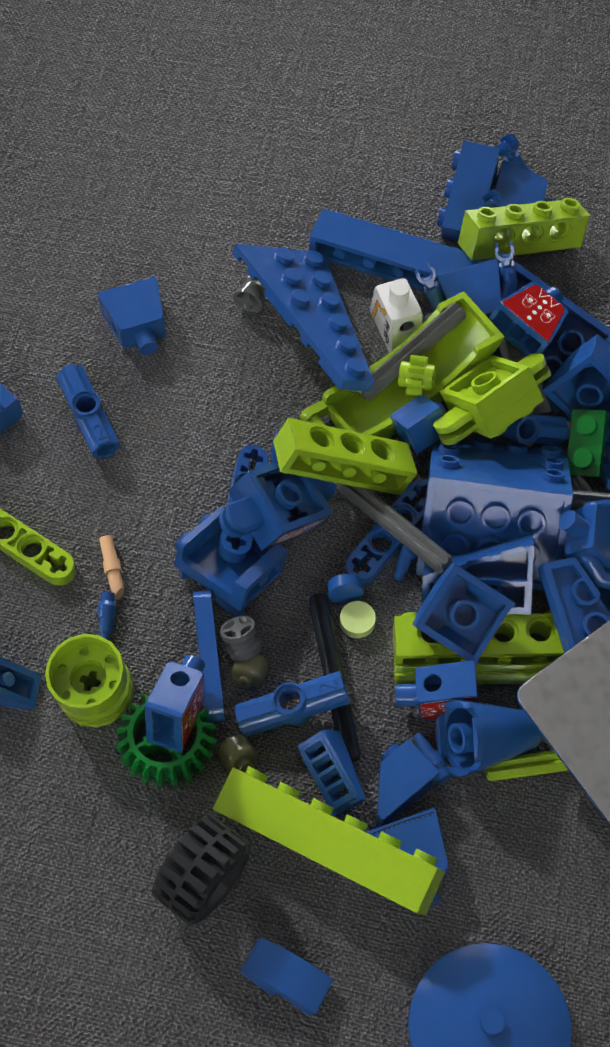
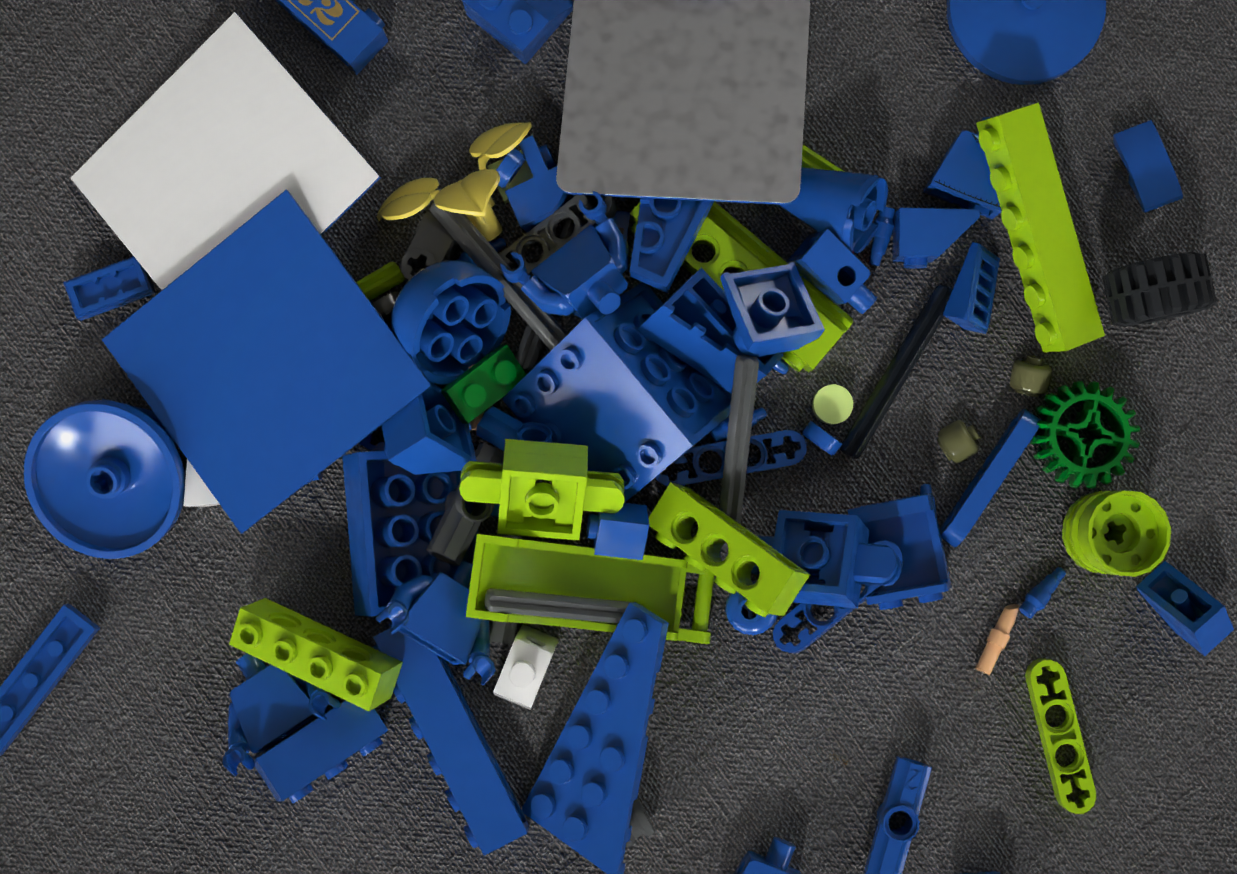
camera: 140 degrees left, 25 degrees up
(175, 703) = (1090, 433): blue torso -> none
(241, 638) = (951, 478): dark grey wheel -> none
(270, 712) = (981, 379): blue piece -> none
(417, 375) = (584, 574): lime gear -> none
(530, 317) = (427, 533): torso -> none

